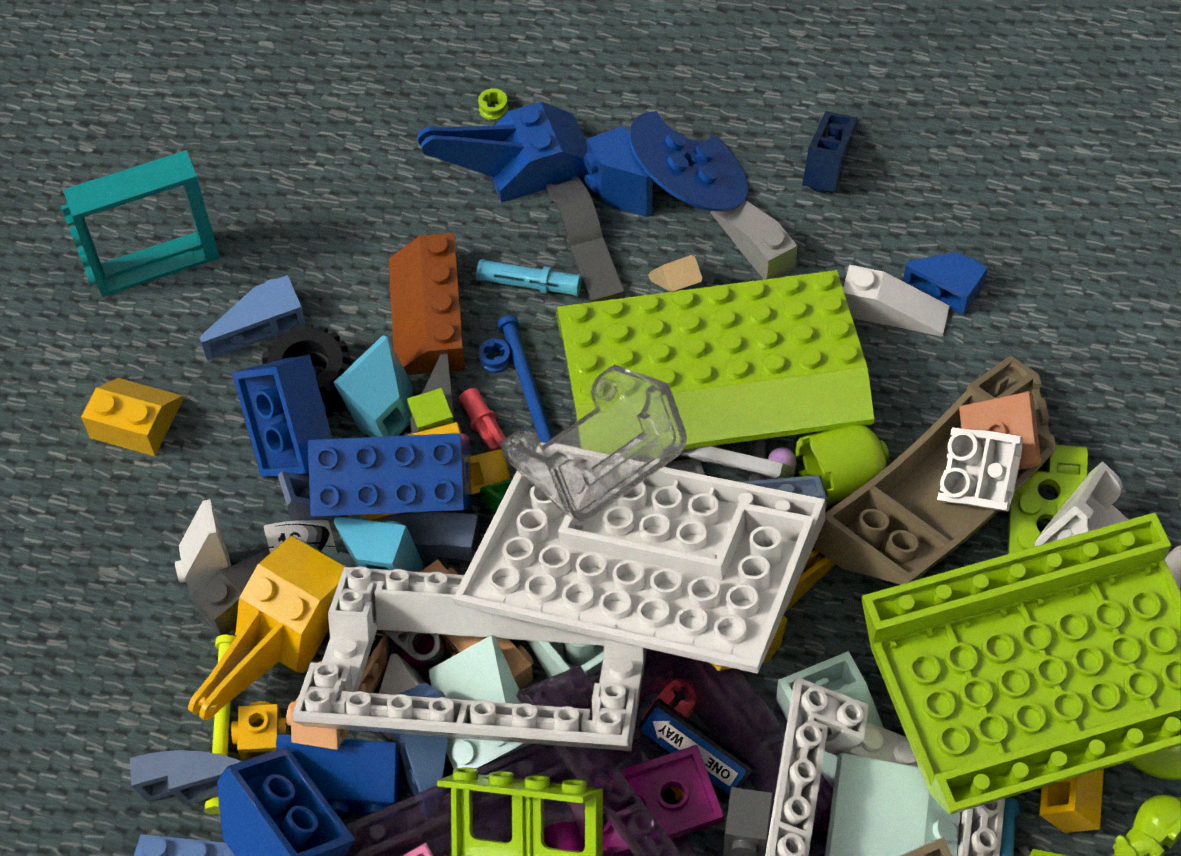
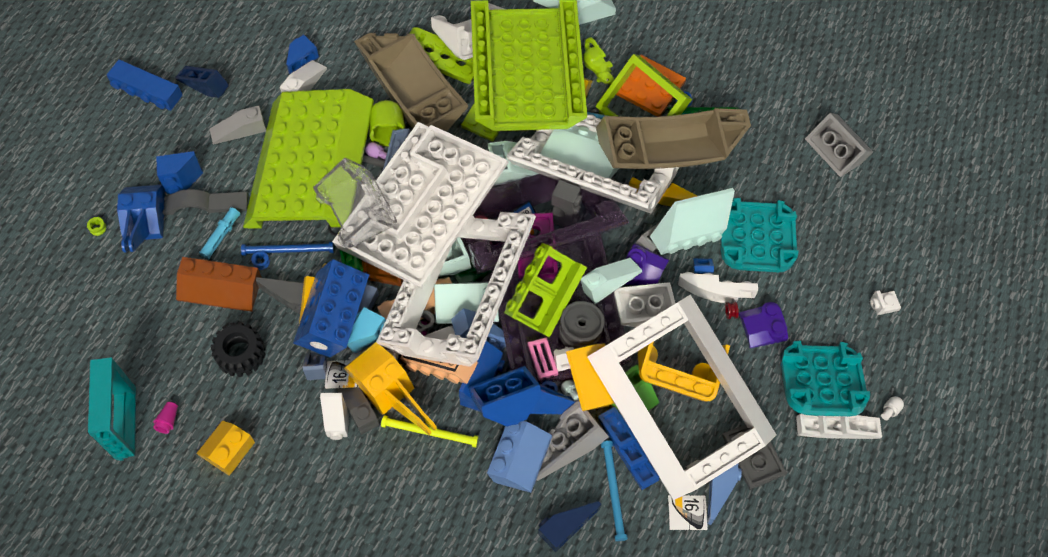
camera: 80 degrees left, 5 degrees up
(168, 314) = (165, 420): none -> dark pink cone
(182, 773) = (458, 446): sand blue slope -> none
(254, 318) = (187, 363): medium blue slope -> none
(257, 729) = (444, 410): yellow brick -> none
(282, 413) = (268, 360): blue slope -> none
(377, 391) = (268, 315): medium azure slope -> none
(430, 410) = (290, 290): lime tile -> none
(482, 419) = (298, 273): coral axle -> none
(677, 274) = (251, 162): tan slope -> none
(690, 170) = (187, 139): blue piece -> none
(739, 461) = (376, 155): light grey tile -> none
(787, 72) = (144, 85): none -> blue brick
(981, 469) = (416, 65): white slope -> none
(1007, 415) = (399, 53): nougat plate -> none

